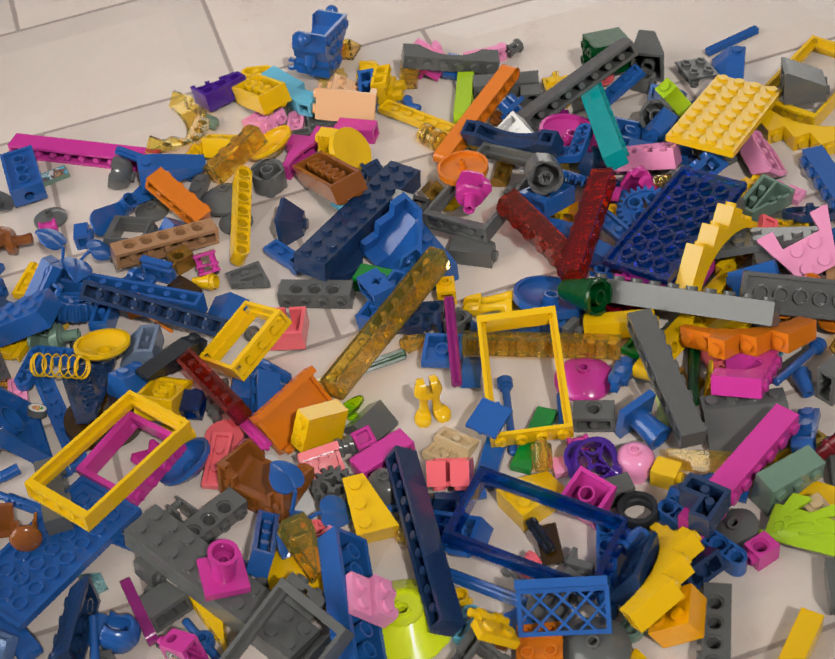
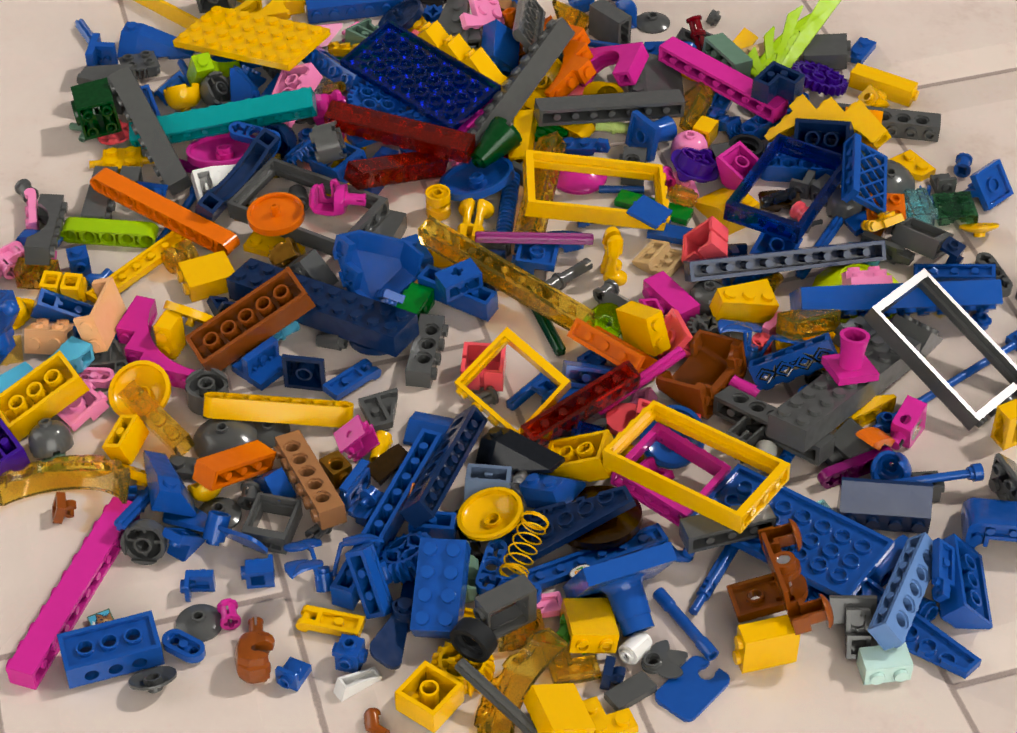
camera: 95 degrees left, 0 degrees up
(25, 211) = (185, 646): none -> blue plate
(79, 205) = (197, 581): none -> blue bracket
(117, 188) = (182, 542): none -> blue slope
(151, 612) = (875, 437): none -> orange slope
(158, 218) = (248, 495): none -> dark grey bush
(162, 130) = (62, 508): none -> dark orange tile
(225, 111) = (49, 437): none -> dark grey cylinder
(247, 518) = (744, 386): none -> dark pink cone
(309, 201) = (261, 365): none -> blue bracket
(352, 247) = (389, 297): none -> blue plate
(396, 408) = (599, 292): none -> dark grey bush
(409, 371) = (560, 280): none -> dark grey pin
(412, 153) = (205, 275): none -> yellow brick
(424, 88) = (79, 260): none -> blue brick
(513, 272) = (438, 201): none -> yellow wheel
(642, 94) = (182, 96): none -> yellow cylinder
(689, 42) = (100, 52): none -> blue bracket
(752, 636) = (873, 97): none -> yellow brick
(777, 559) = (821, 78): none -> dark purple gear

